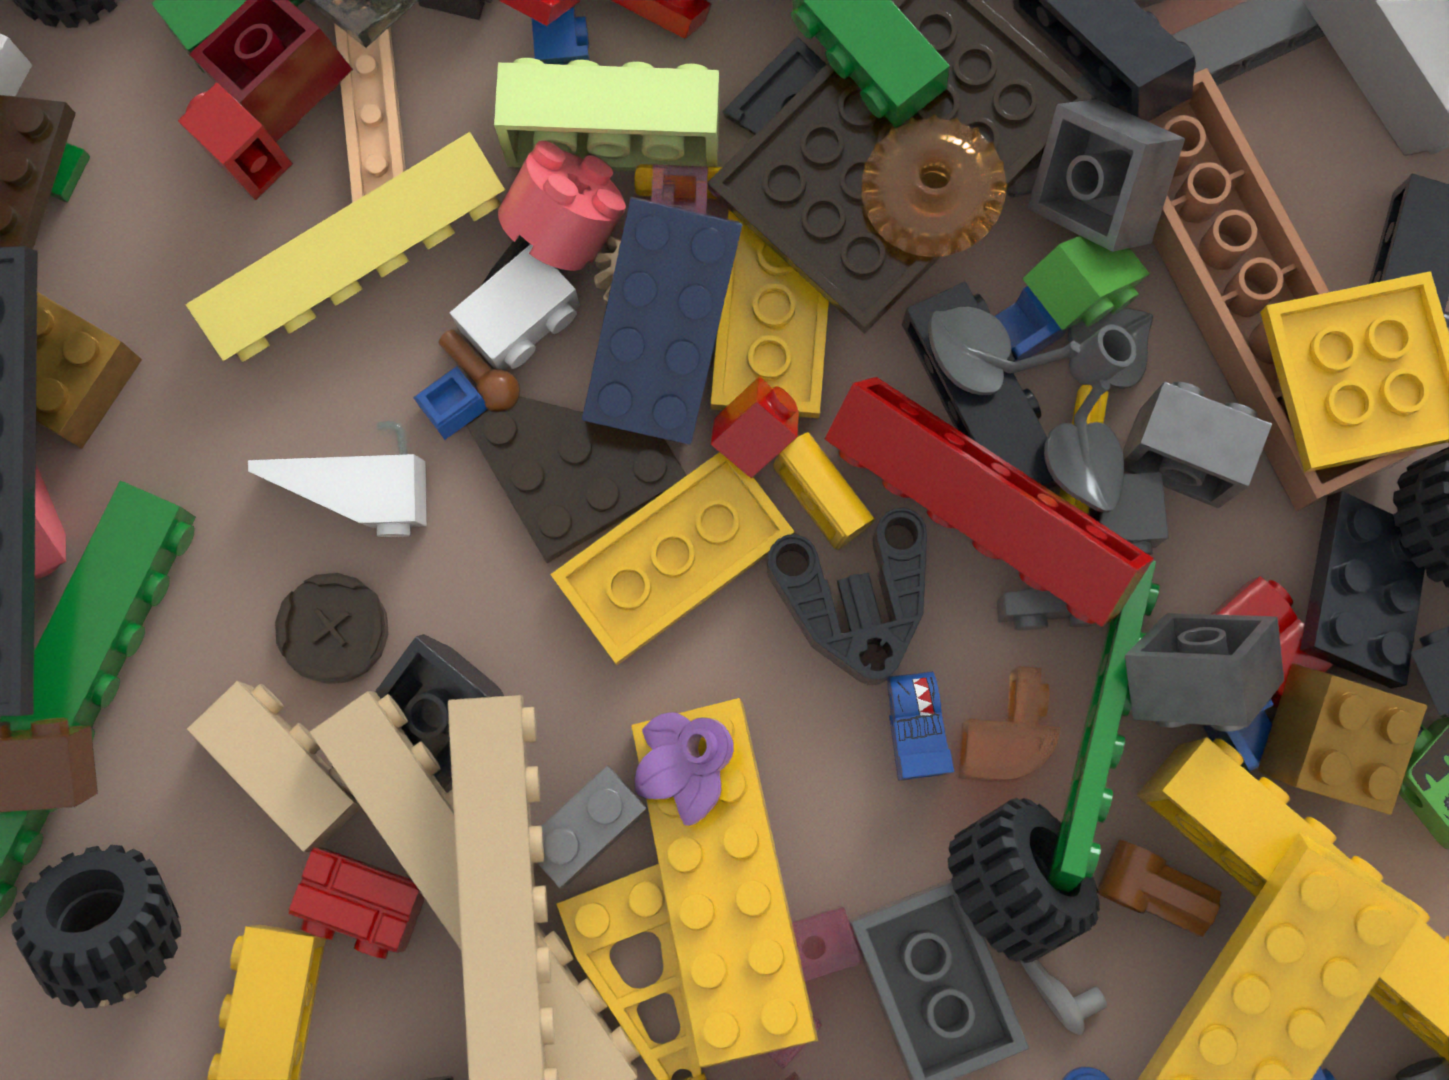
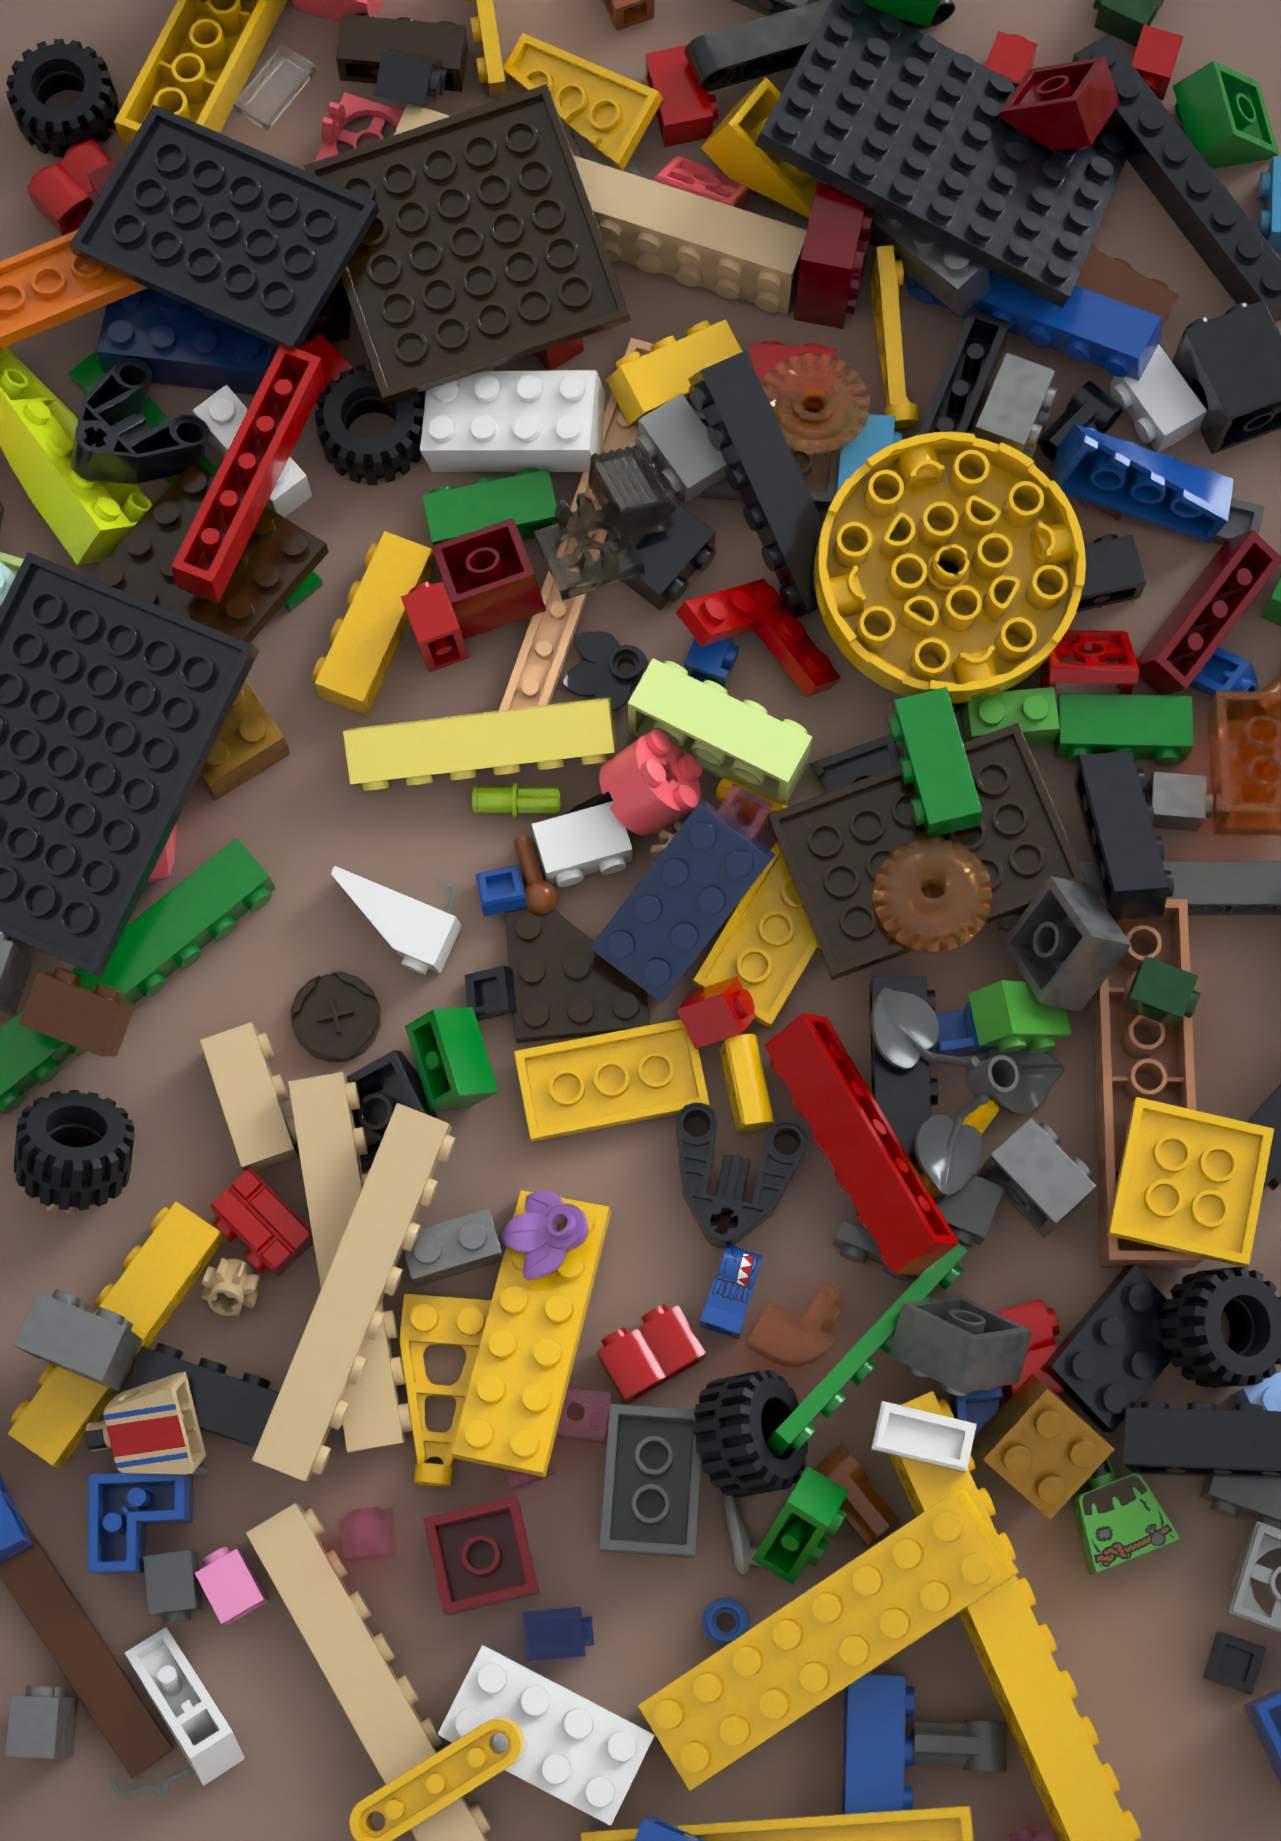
camera: 25 degrees right, 5 degrees down
(165, 174) = (373, 624): none -> yellow brick
(355, 992) = (230, 1287): none -> tan gear
(419, 295) = (516, 800): none -> lime axle
(442, 110) = (599, 672): none -> black plate
(484, 615) = (451, 1058): none -> green brick
(493, 521) = (491, 992): none -> black tile
(863, 838) = (650, 1353): none -> red brick
(1127, 954) = (801, 1524): none -> green brick
(1224, 795) = (923, 1437): none -> white tile
(1236, 178) = (1162, 992): none -> dark green brick

